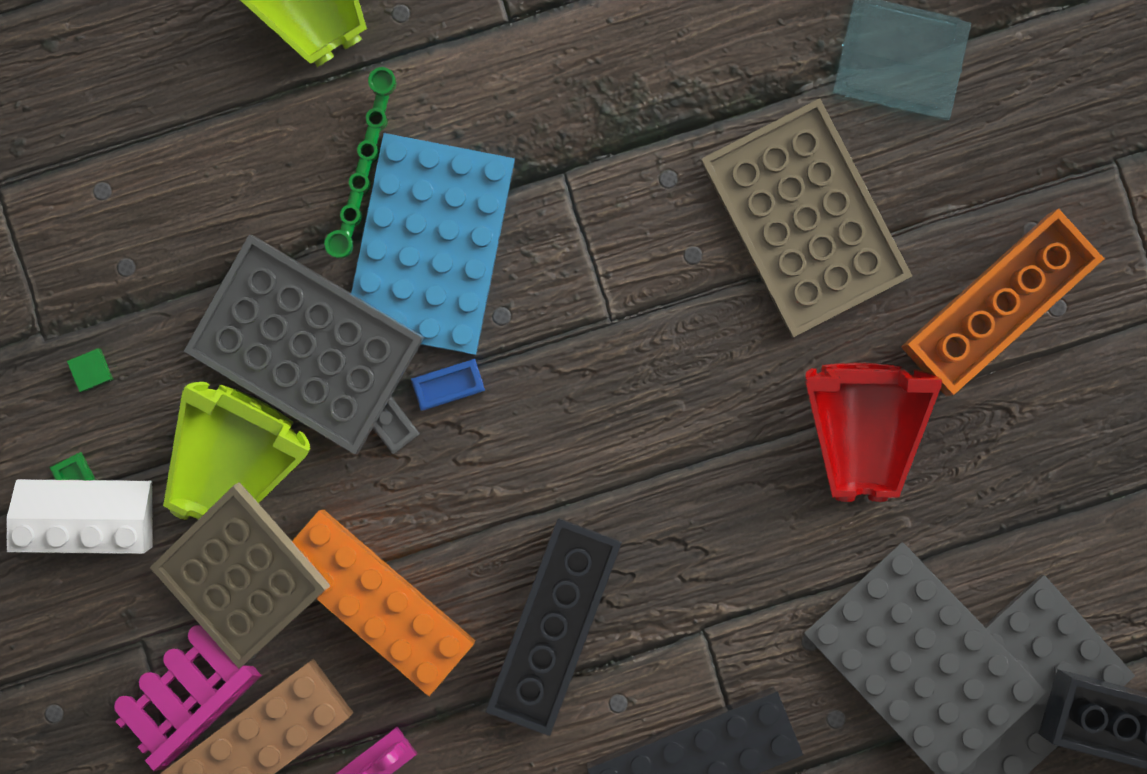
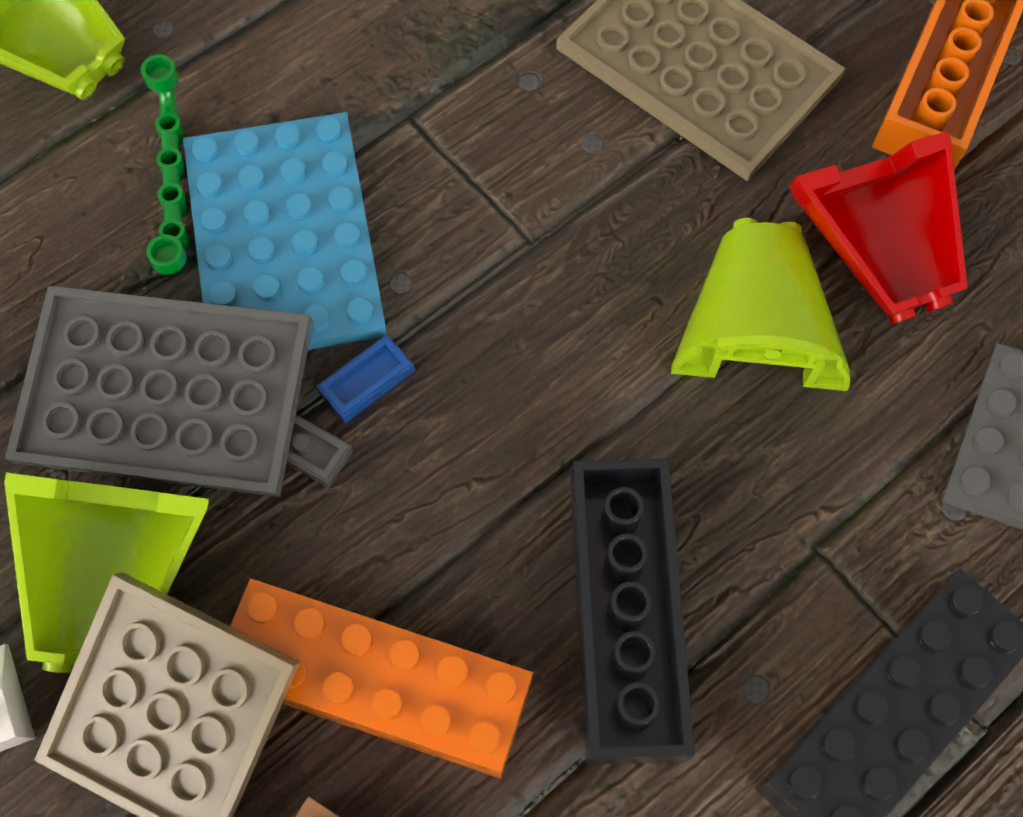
camera: 20 degrees left, 20 degrees down
(749, 448) = (764, 309): none -> lime cone

